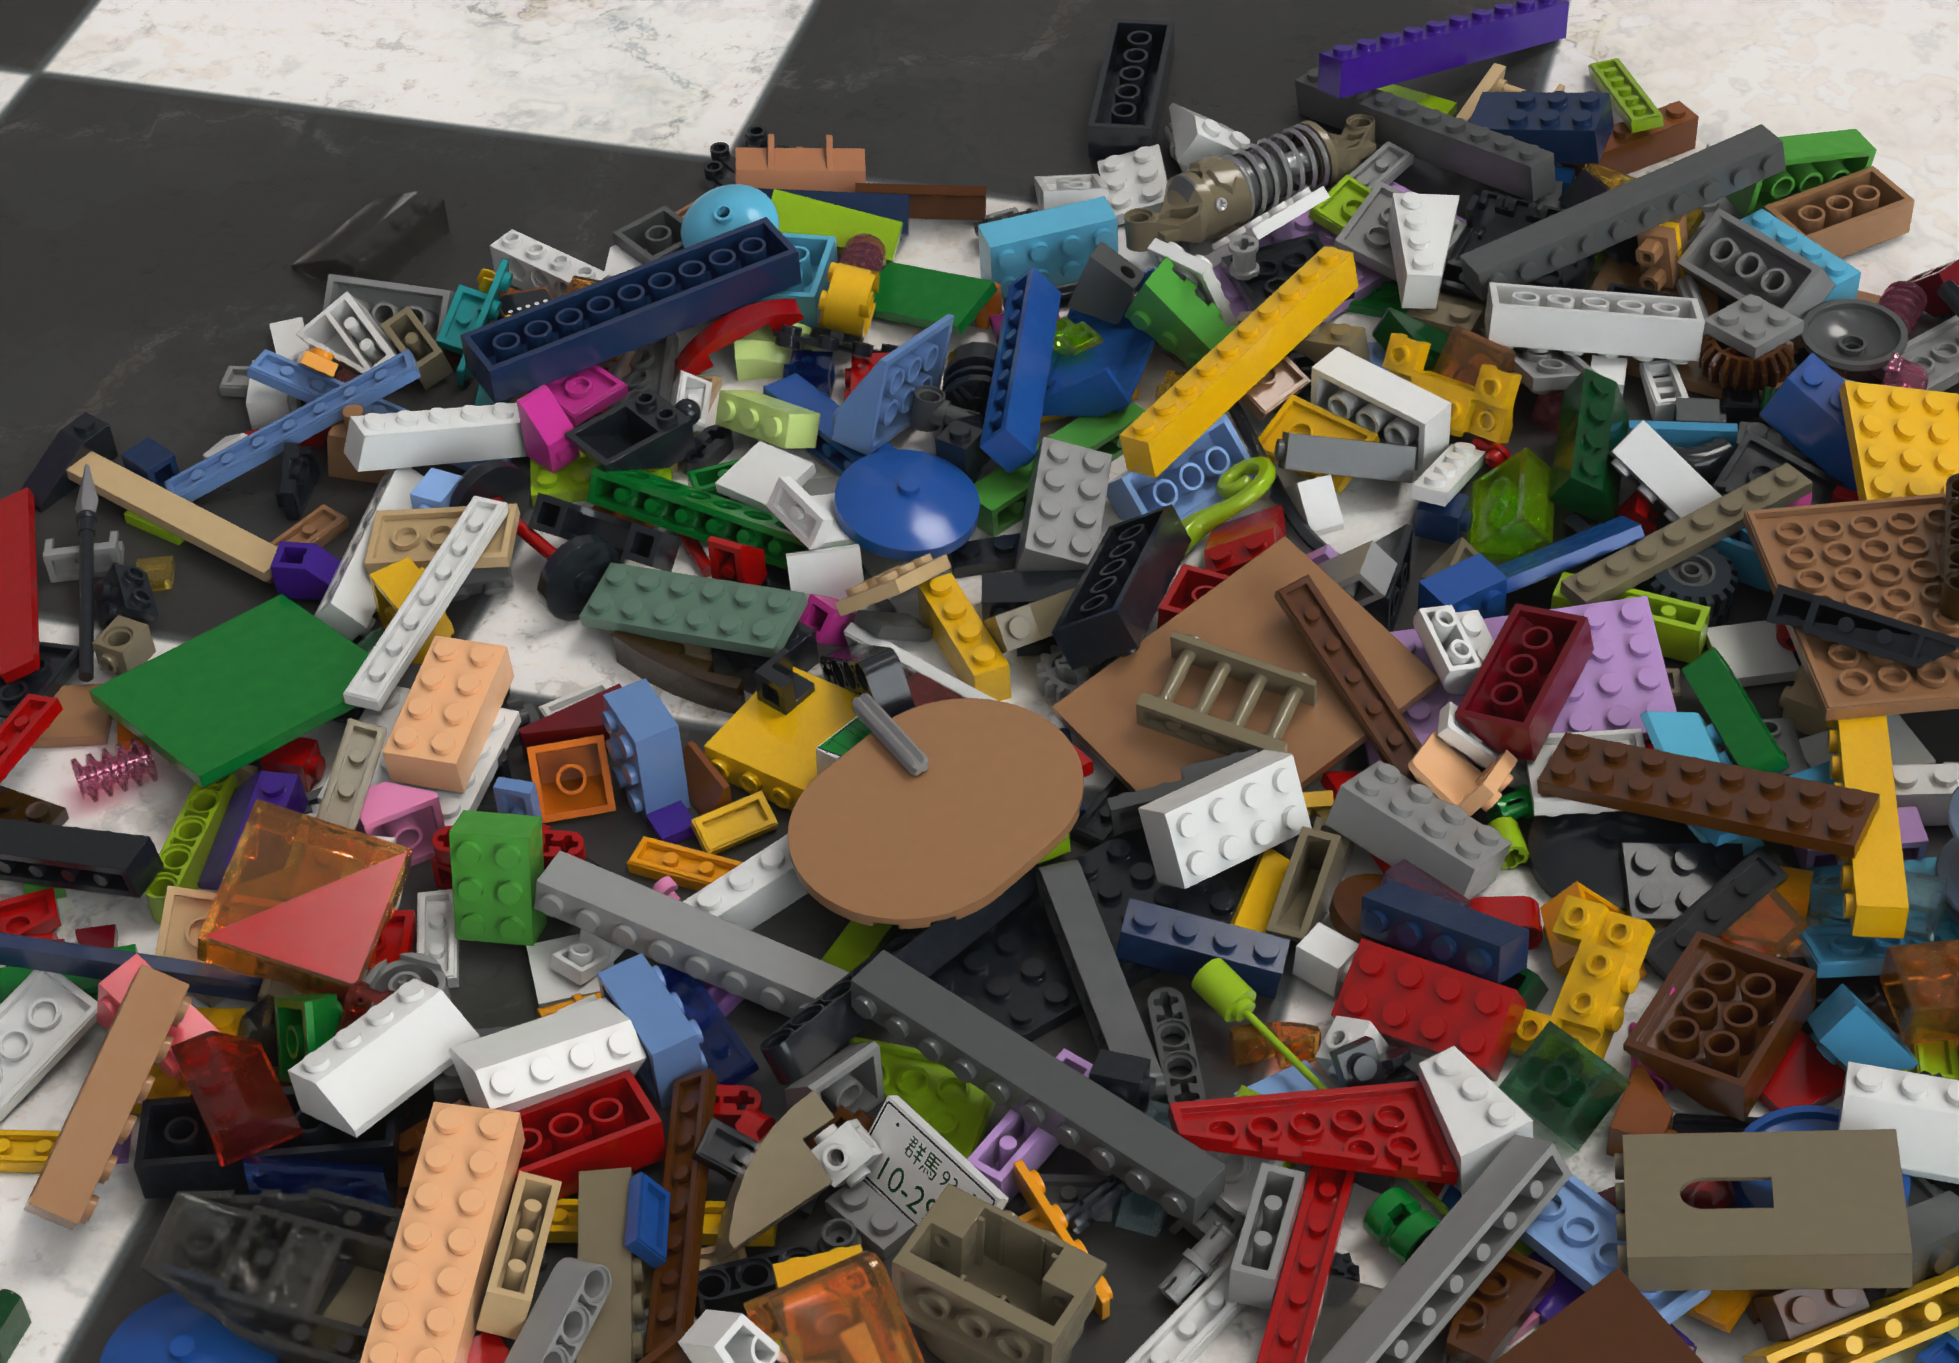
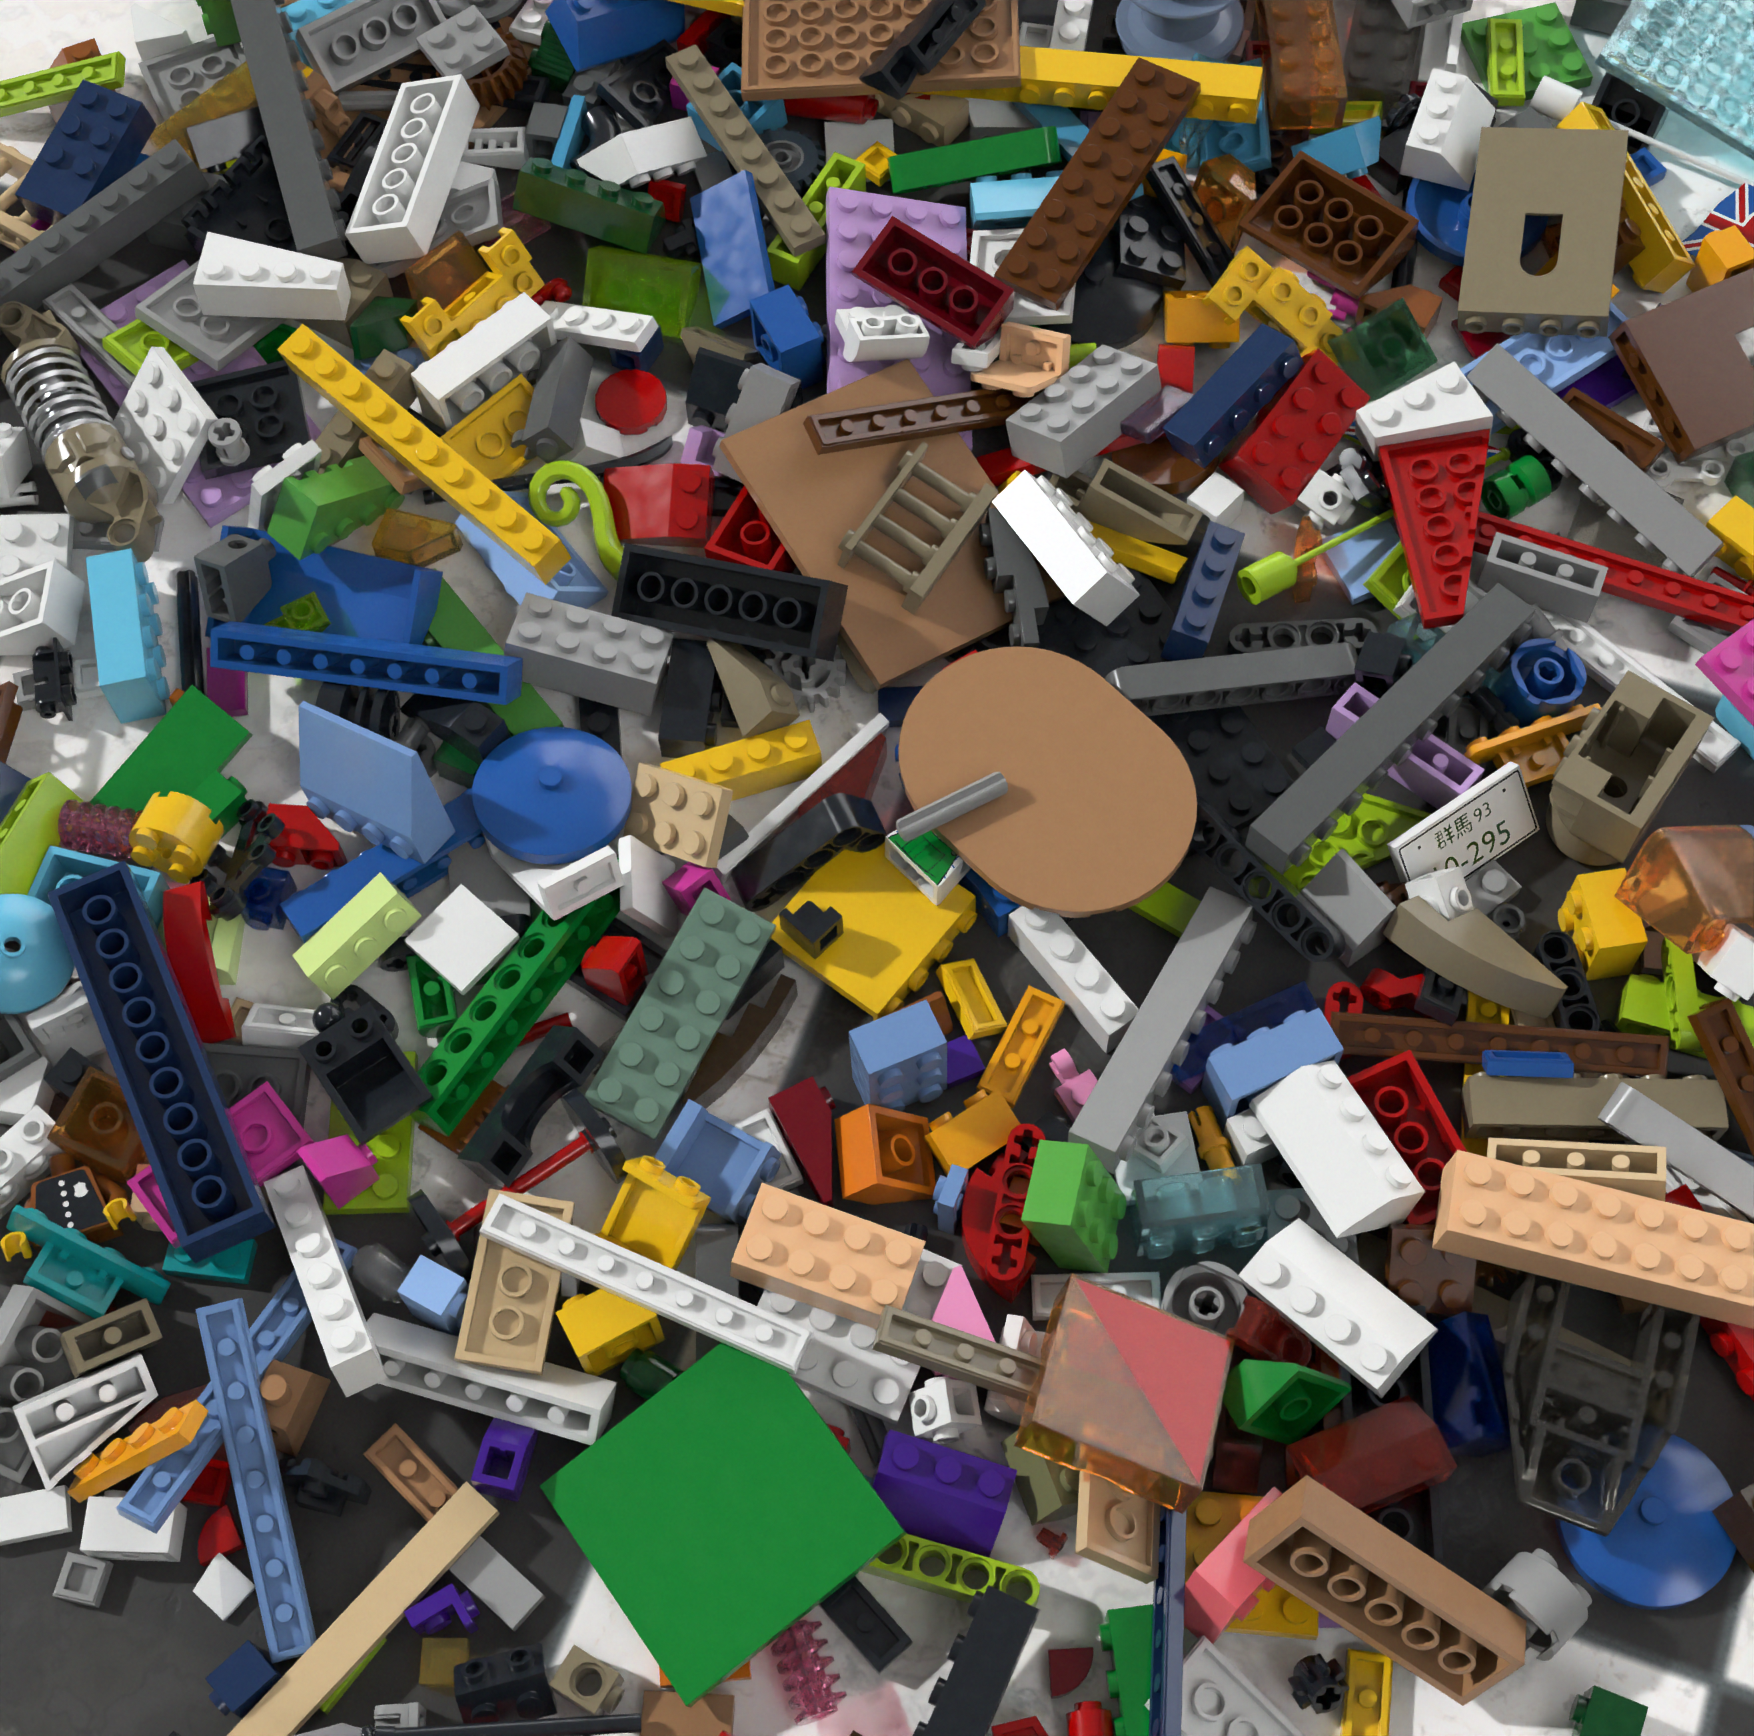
camera: 85 degrees left, 20 degrees up
(53, 1102) = (1318, 1683): none -> black gear
(101, 1252) = (1542, 1597): none -> light grey brick
(152, 804) = (866, 1624): none -> black hinge
(191, 563) = (435, 1611): none -> dark purple bracket
(213, 593) = (497, 1583): none -> light grey tile
(499, 970) = (1199, 1211): none -> clear light blue brick
(509, 625) = (655, 1212): none -> yellow panel
(568, 665) = (719, 1159): none -> medium blue panel
(587, 814) = (973, 1132): none -> light orange brick
(894, 327) = (222, 798): none -> green brick
(1135, 1243) = (1540, 681): none -> blue brick
(1374, 520) = (631, 401): none -> red tile
(1736, 657) = (876, 163): none -> yellow tile

